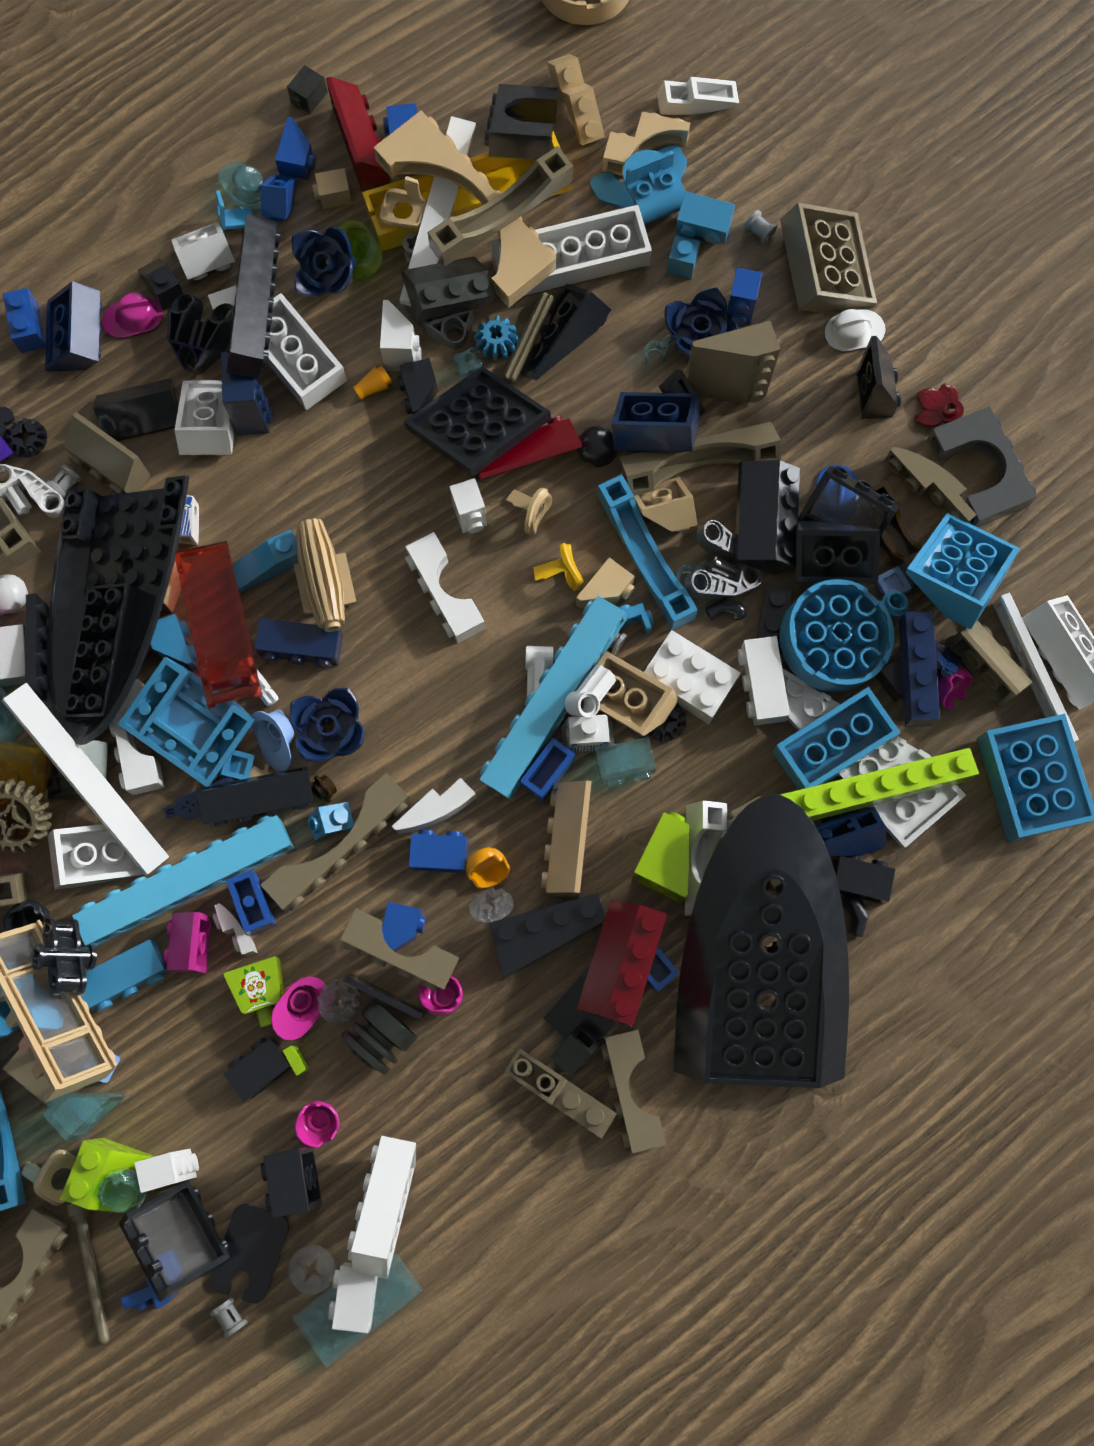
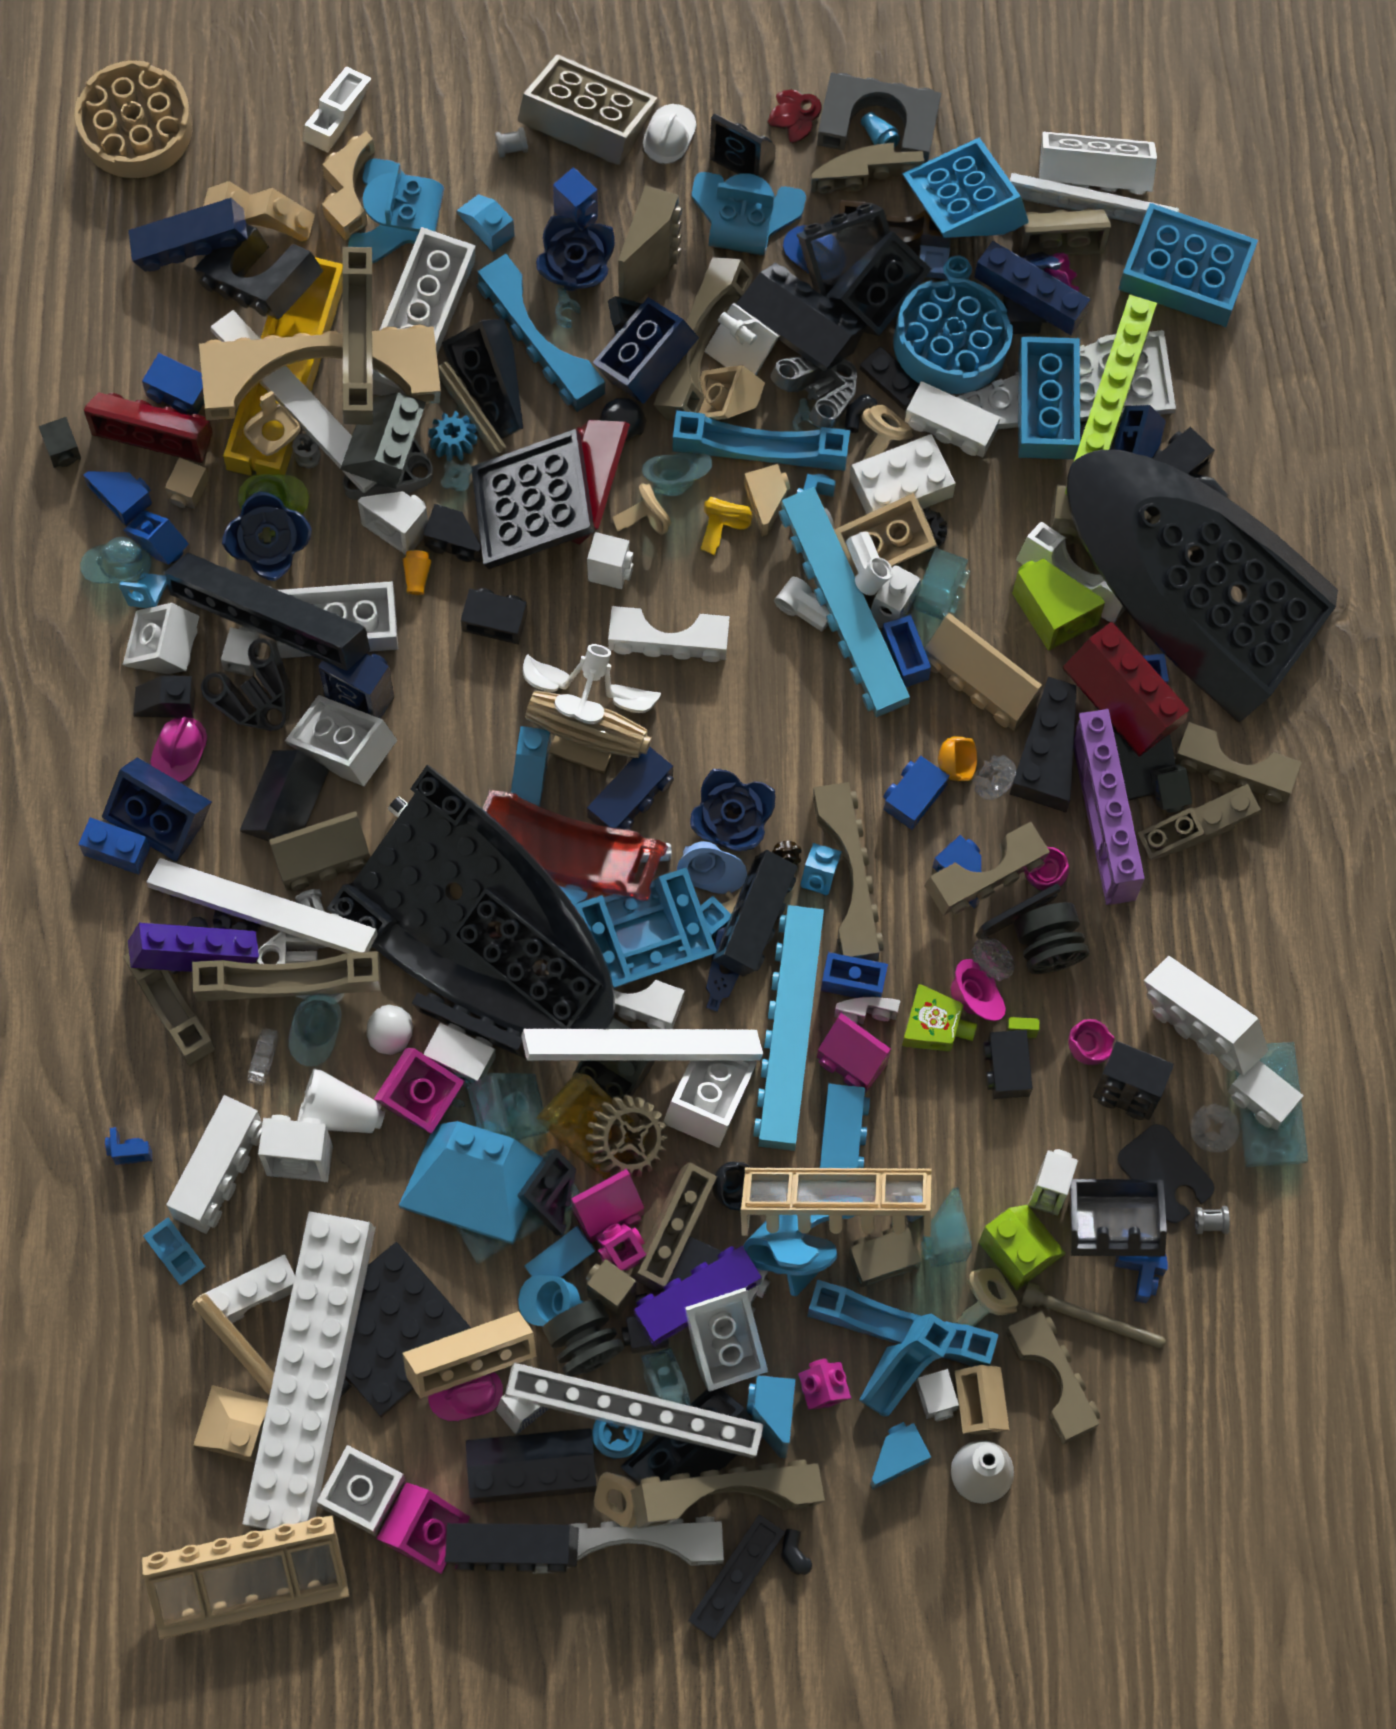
camera: 60 degrees left, 5 degrees down
(34, 448) = (261, 907): none -> white tile
(64, 957) = (804, 1159): black axle -> none
(121, 1190) = (1049, 1220): clear light blue hair -> none
(317, 561) = (594, 667): none -> white plant
(373, 456) = (494, 615): none -> black brick
(435, 808) = (872, 768): white slope -> none
(517, 1010) = (1107, 807): none -> medium lavender window
(519, 61) = (188, 235): none -> dark blue brick
(576, 508) = (676, 473): none -> clear light blue piece
(639, 301) = (574, 376): none -> dark azure arch
(705, 218) = (476, 181): dark azure slope -> none
(717, 485) = (741, 340): none -> white plate
(719, 637) = (898, 431): none -> tan piece
(826, 420) = (745, 210): none -> dark azure piece
(972, 475) = (879, 130): none -> dark azure cone

